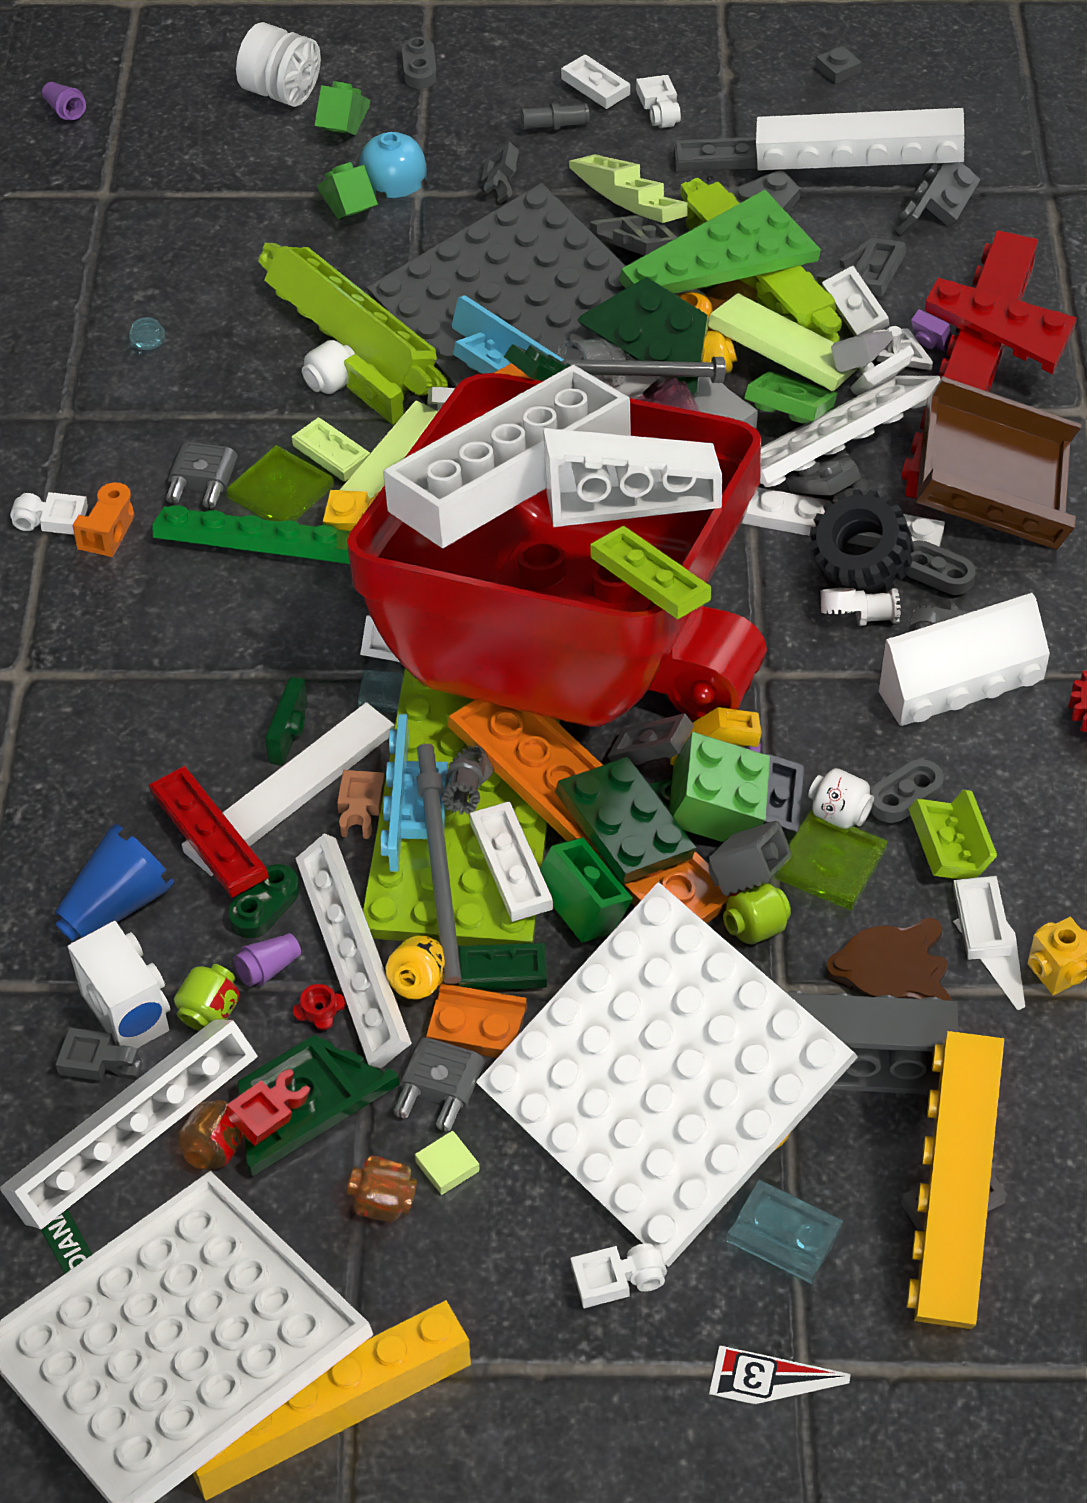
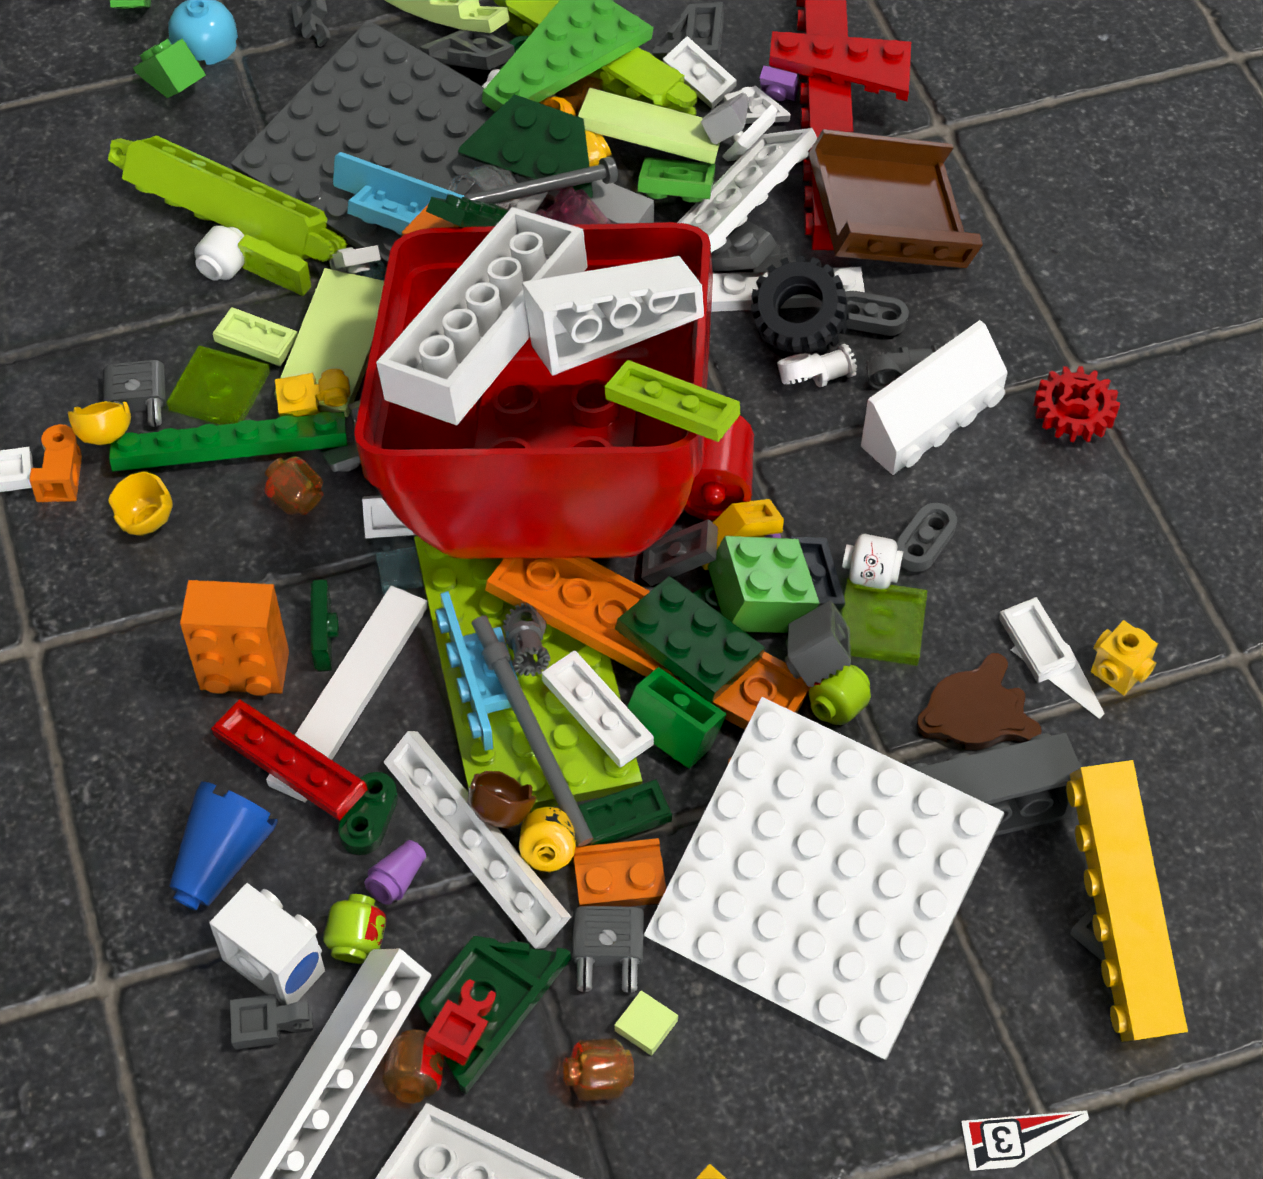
camera: 20 degrees left, 5 degrees up
(146, 334) = (22, 261): clear light blue plate -> none
(155, 489) = (100, 422): none -> yellow hair
(165, 571) = (140, 503): none -> yellow hair
(196, 705) = (235, 637): none -> orange brick
(311, 590) = (293, 485): none -> clear orange head
(315, 996) = (464, 892): red plate -> none
(359, 798) = (423, 684): nougat plate -> none
(383, 916) = (500, 799): none -> reddish brown hair
(604, 1276) = (837, 1090): white plate -> none
(785, 1231) = (981, 994): clear light blue plate -> none
(953, 836) = (986, 569): lime bracket -> none

